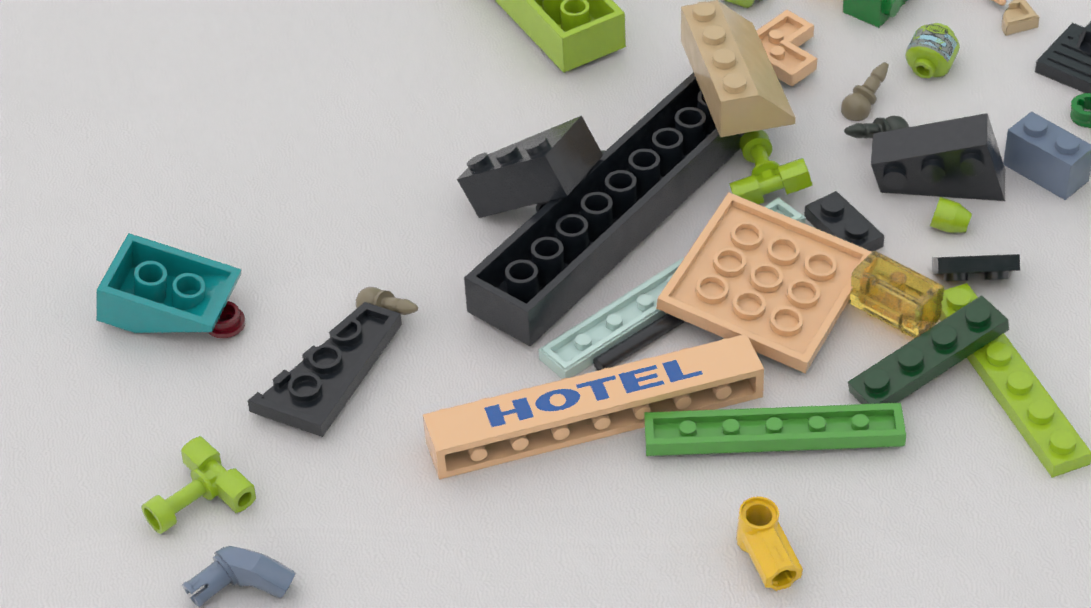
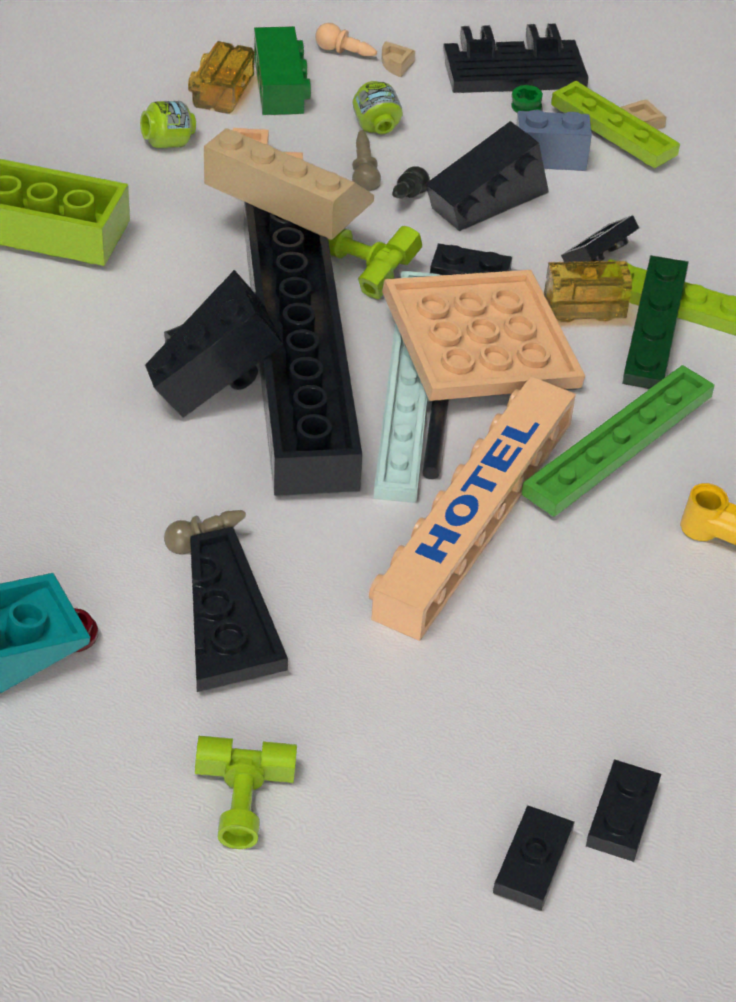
camera: 50 degrees left, 0 degrees up
(241, 568) = (373, 818): sand blue arm -> none
(950, 217) = (535, 219): lime hose -> none

